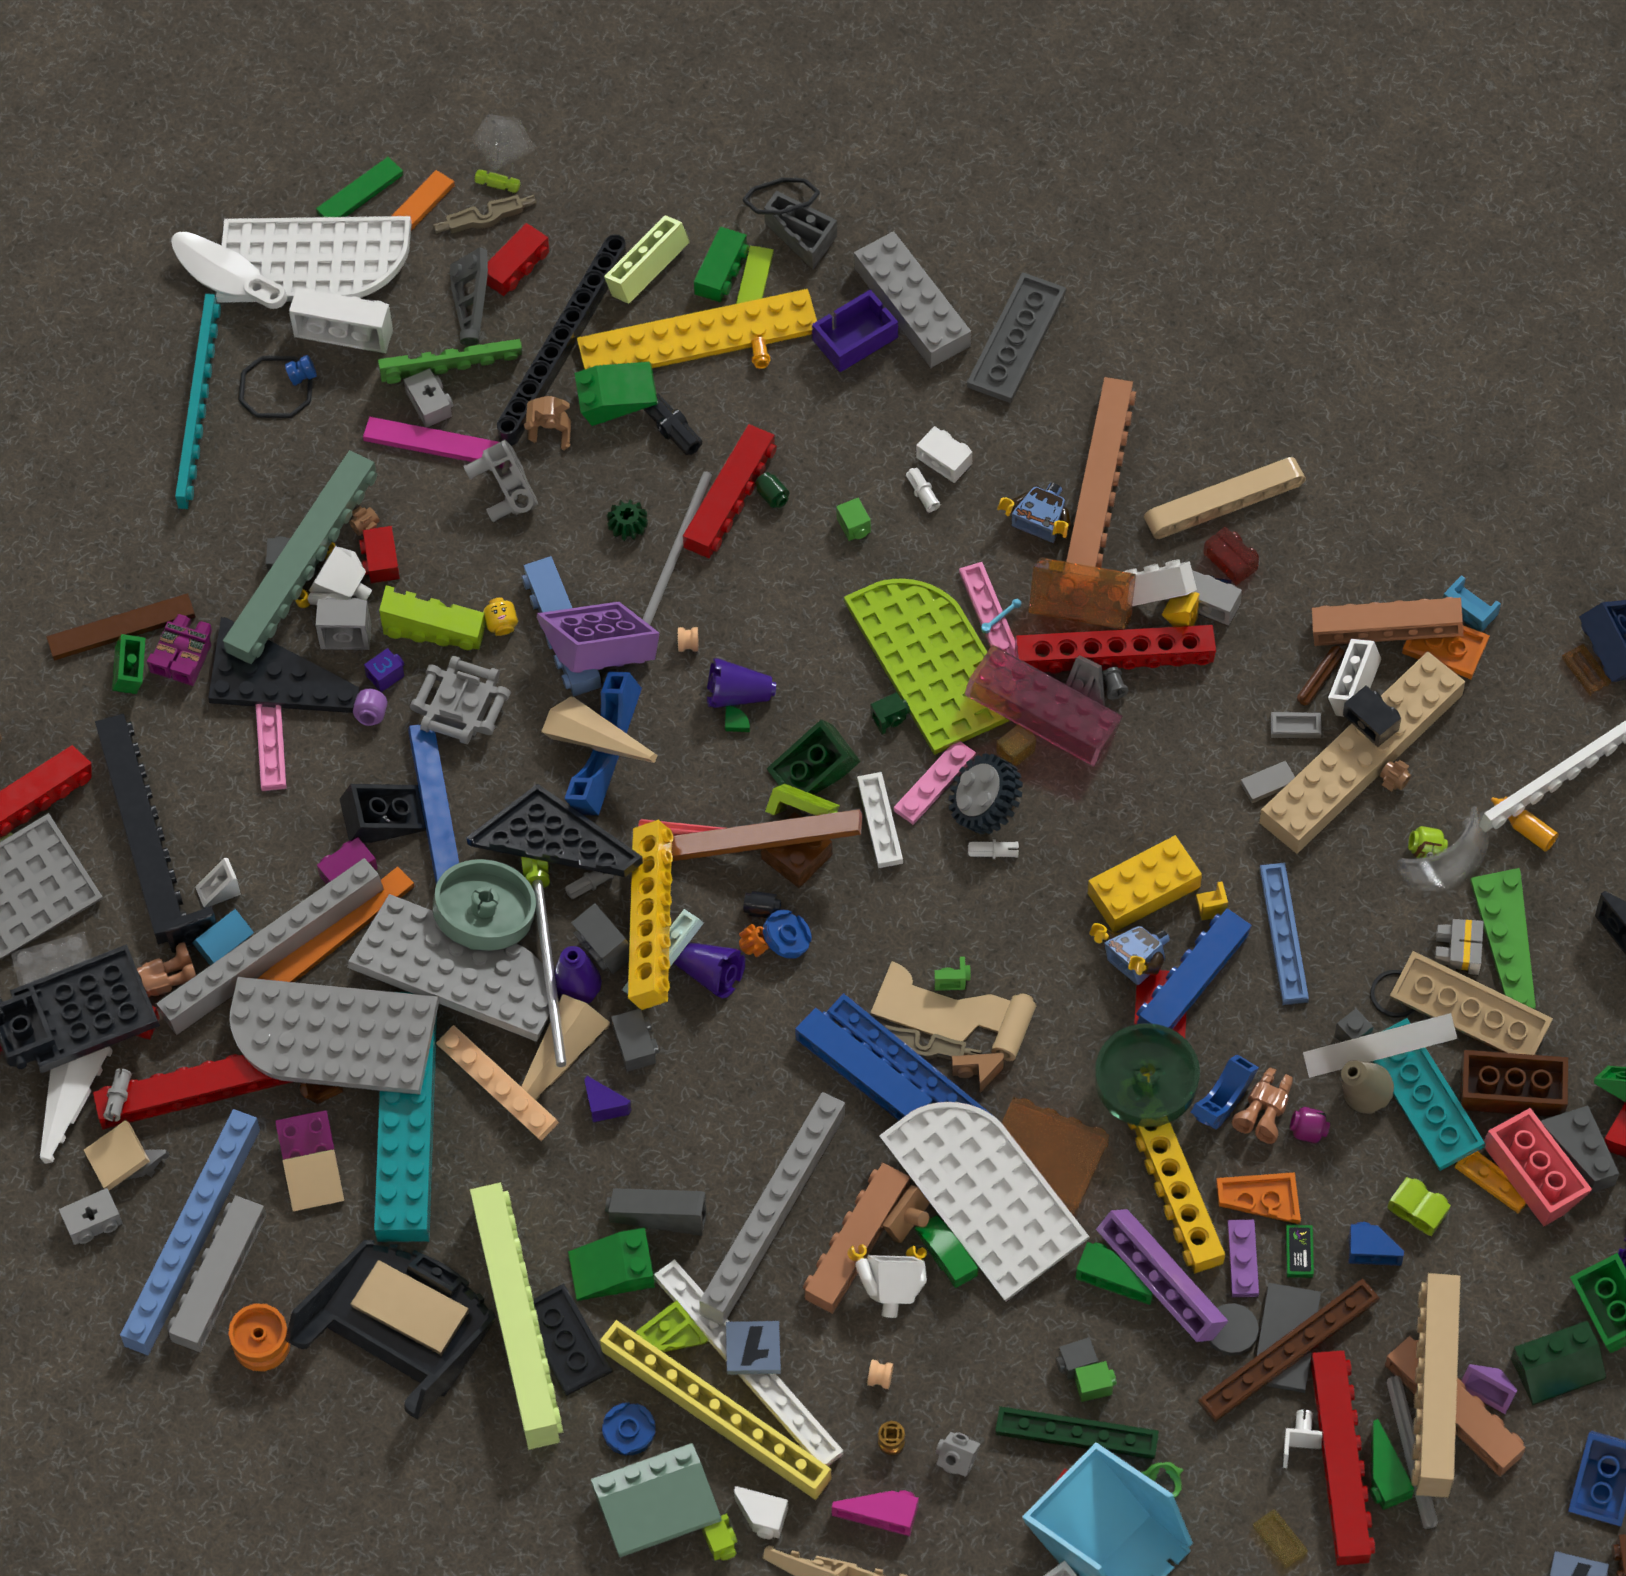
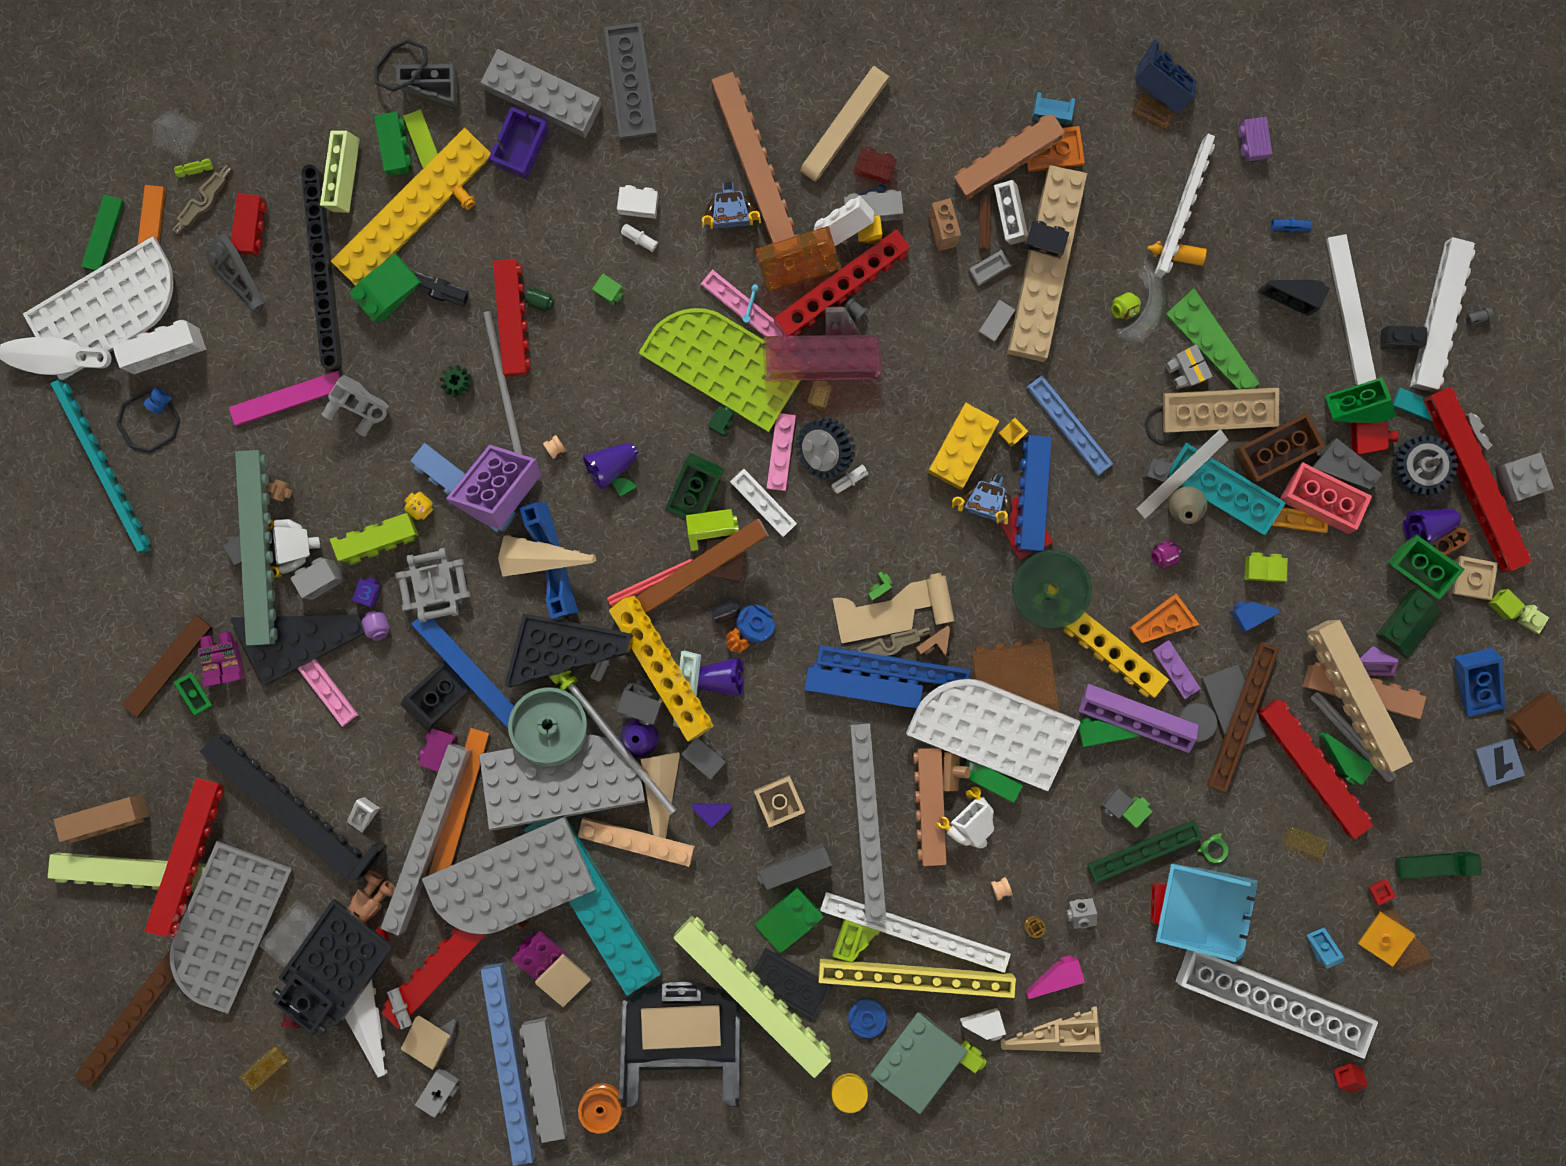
camera: 35 degrees left, 25 degrees up
(223, 937) = (392, 851): dark azure panel -> none
(380, 554) = (306, 508): red brick -> none
(400, 367) = (277, 312): bright green wing -> none
(428, 398) = (249, 364): light grey brick -> none
(548, 413) = (352, 333): medium nougat piece -> none
(552, 1495) = (849, 1093): none -> yellow head
(687, 1129) = (779, 801): none -> tan brick
(753, 1347) = (914, 923): sand blue tile -> none
(1226, 1093) = (1101, 566): blue arch -> none
(1268, 647) = (944, 230): none -> medium nougat window
(1268, 1098) = (1130, 550): nougat piece -> none
(1299, 1251) = (1208, 643): tile -> none
(1302, 1435) = (1282, 767): white bracket -> none
(1395, 775) = (1077, 268): medium nougat gear -> none

